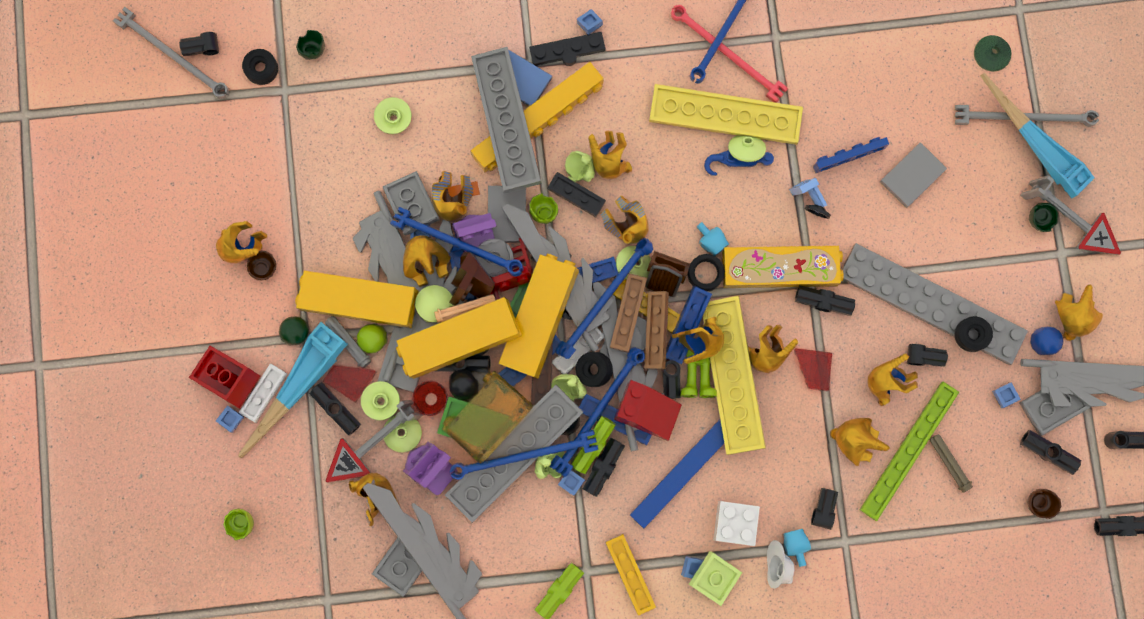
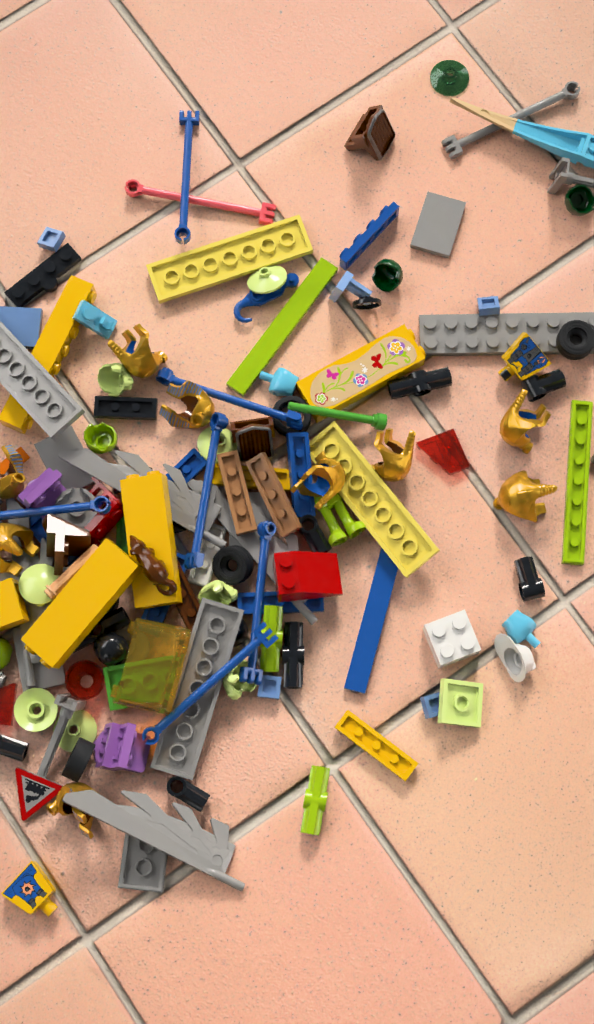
camera: 25 degrees left, 5 degrees down
(305, 540) = (32, 890): none -> torso
(392, 459) = (78, 759): none -> black tyre
(464, 532) = (190, 794): none -> black piece
(529, 341) = (153, 568): none -> reddish brown animal
(589, 108) = (94, 319): none -> medium azure plate
(705, 277) = (293, 419): none -> blue hinge
(738, 193) = (282, 327): none -> lime tile
(773, 313) = (377, 420): none -> bright green piece
(847, 196) = (387, 275): none -> dark green hair
(900, 69) = (372, 133): none -> reddish brown piece
(917, 266) = (488, 305): none -> medium blue plate
(921, 326) = (523, 359): none -> torso

